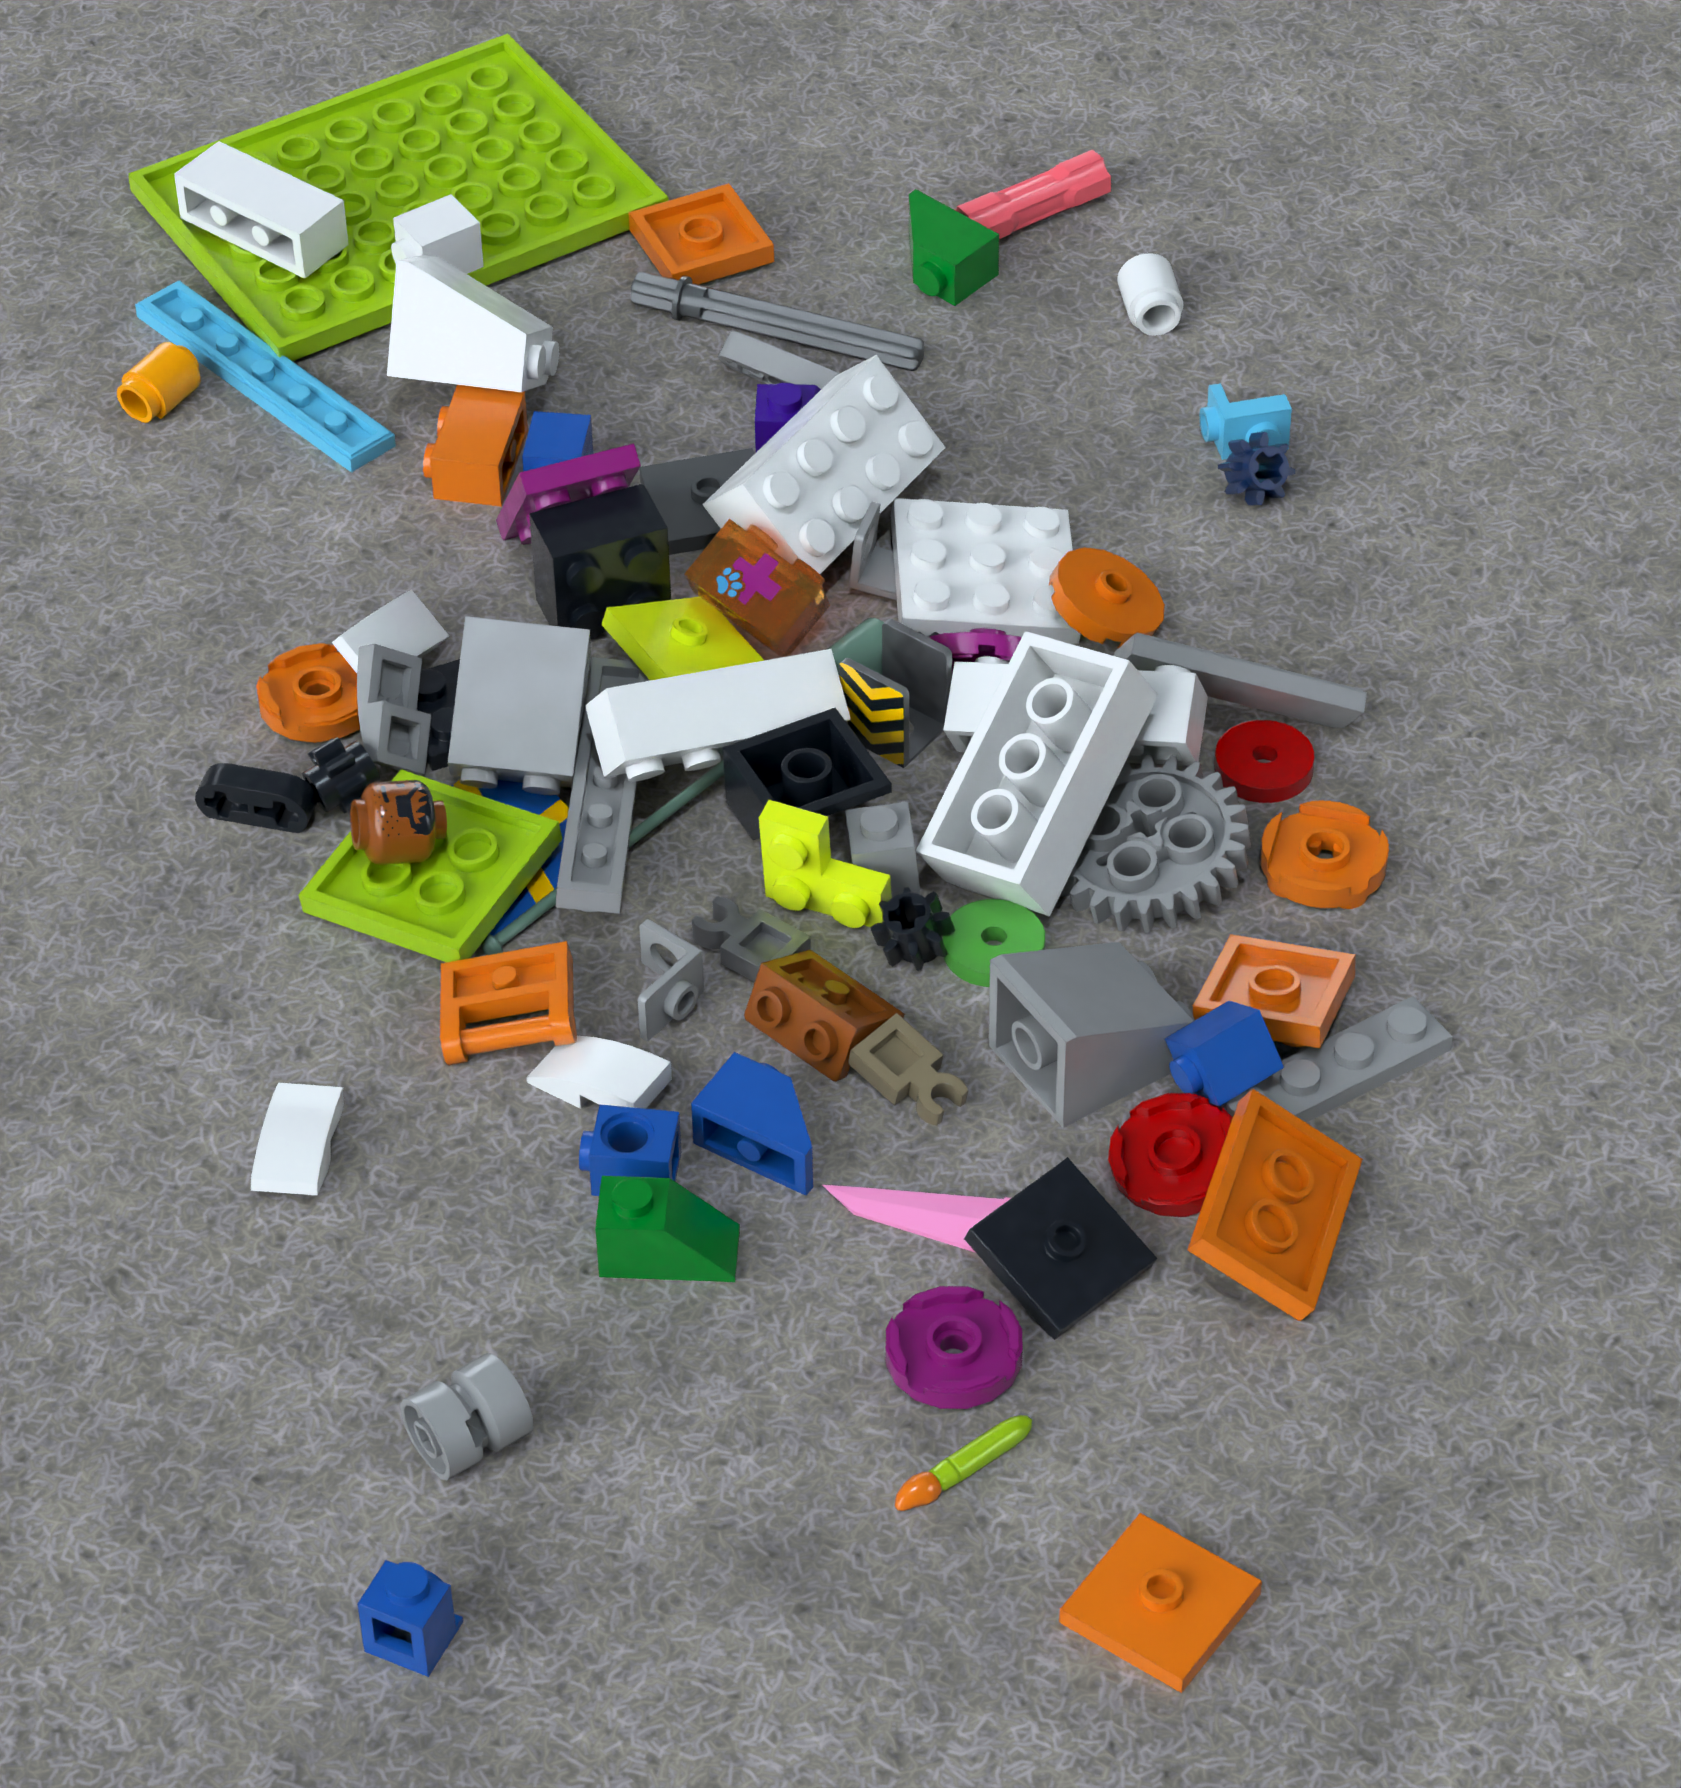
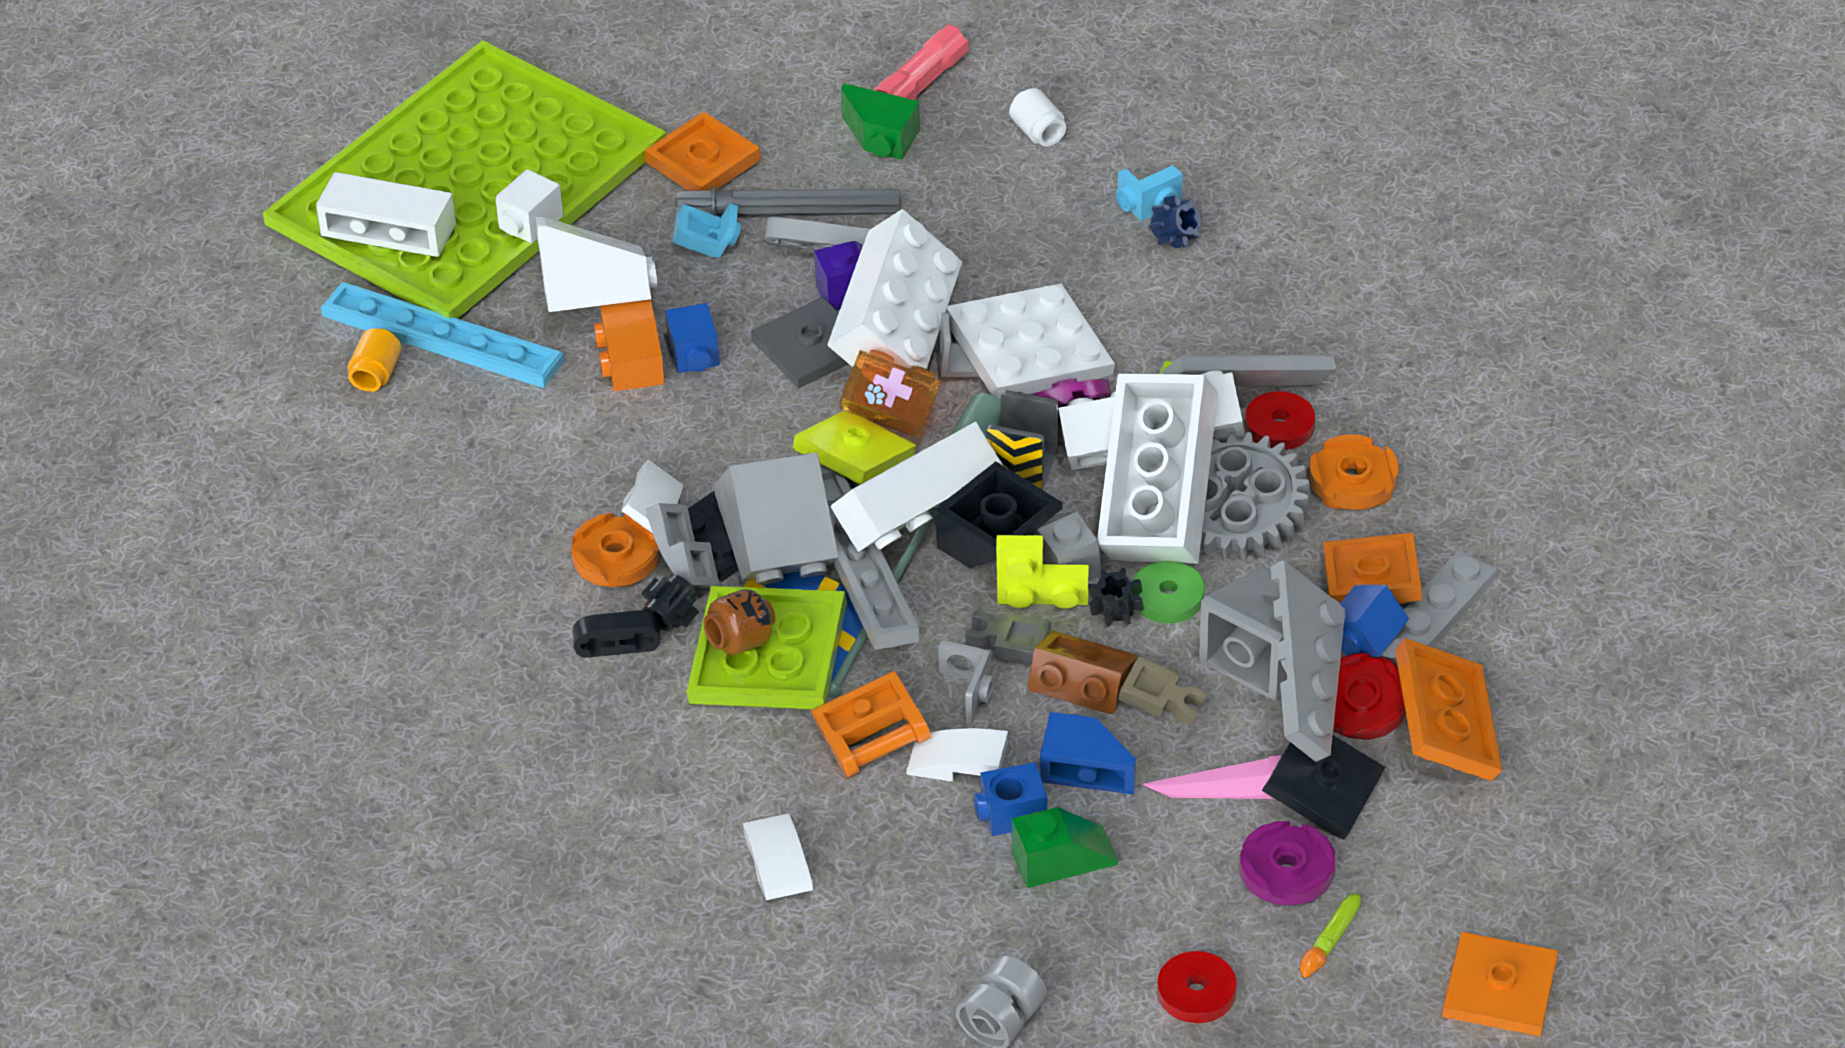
camera: 20 degrees left, 0 degrees up
(564, 484) = (729, 364): magenta plate -> none
(599, 557) = (772, 403): black brick -> none
(649, 329) = (706, 232): none -> medium azure bracket
(752, 1502) = (1196, 1005): none -> red piece
(1101, 1078) = (1310, 658): none -> light grey wing
(1105, 596) = (1122, 337): orange plate -> none

